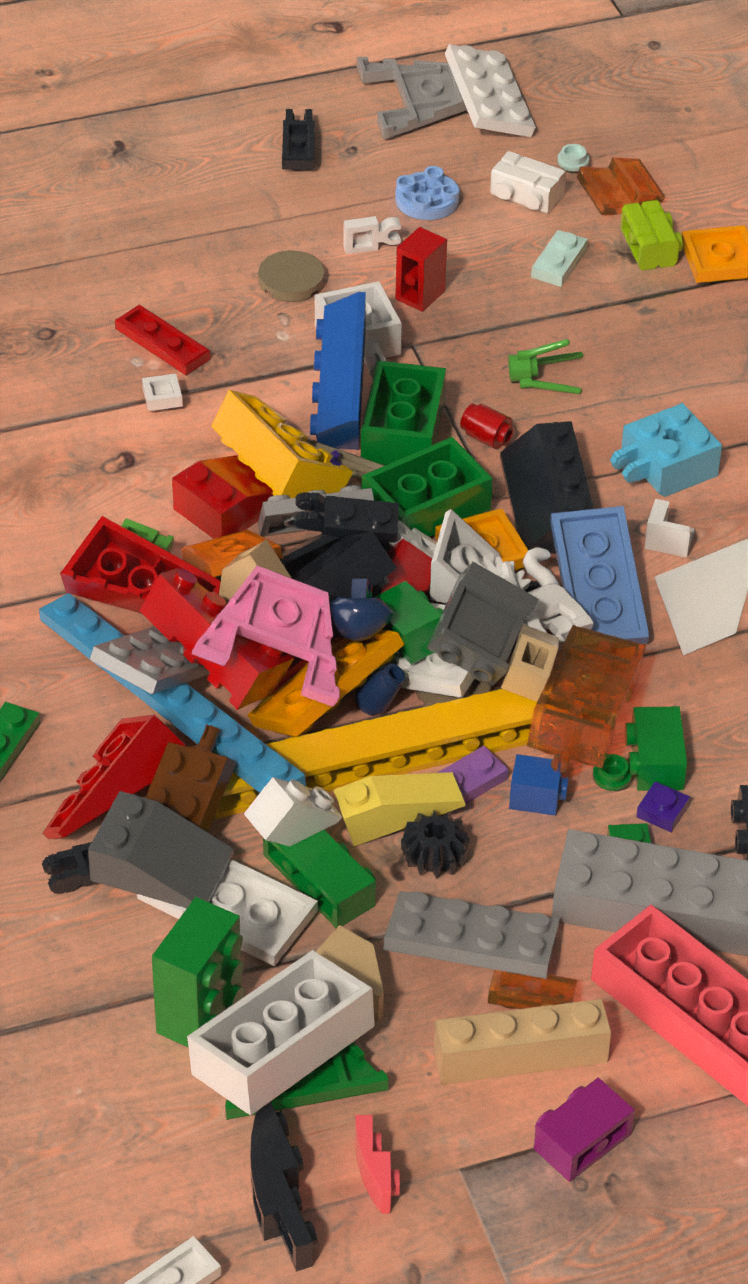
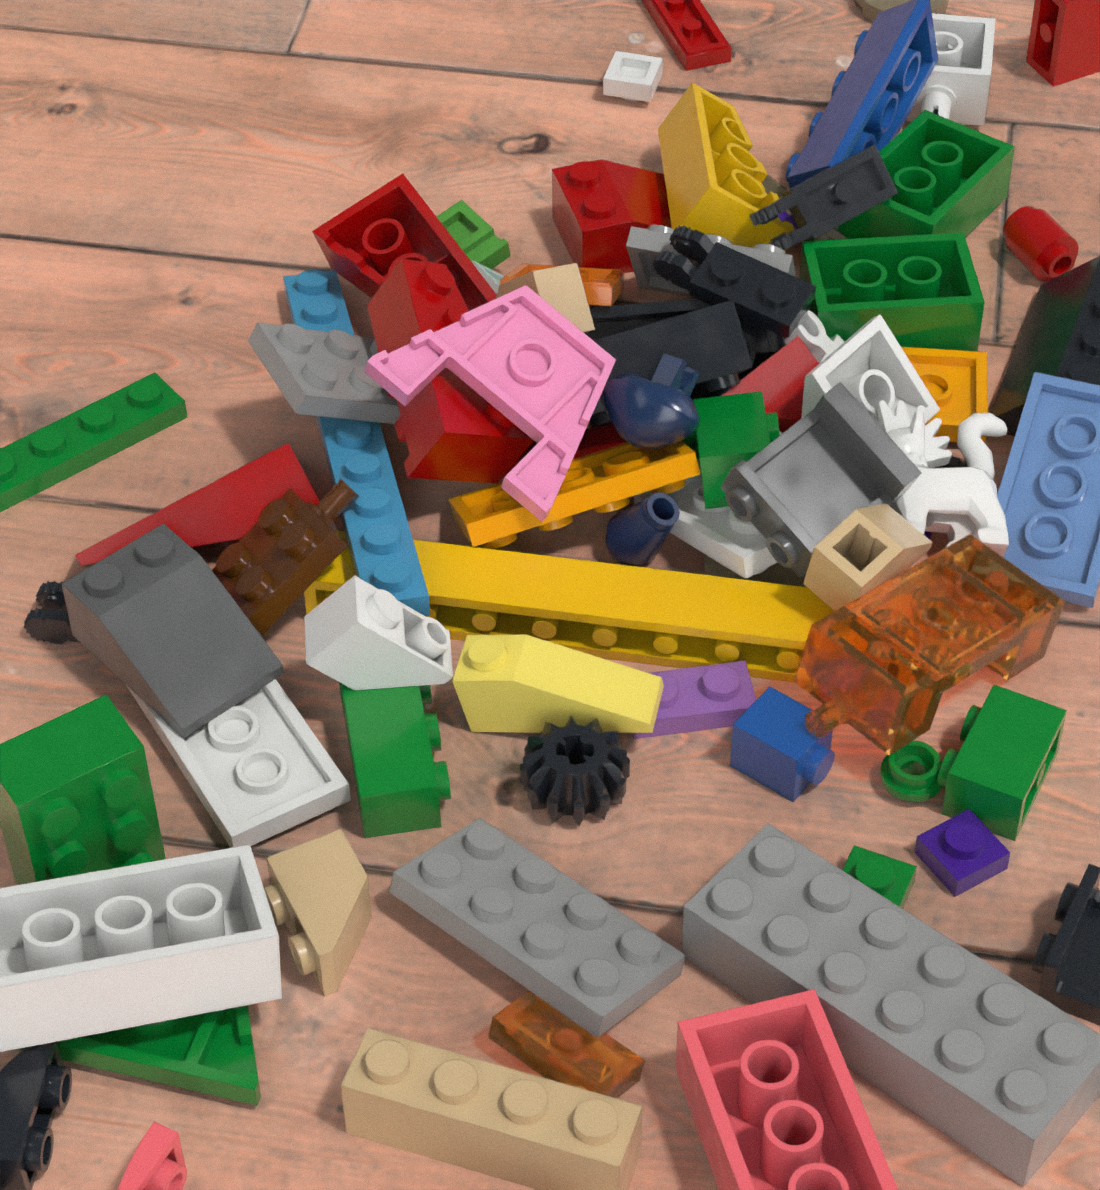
camera: 30 degrees right, 0 degrees up
(365, 443) = (830, 197): none -> black hinge

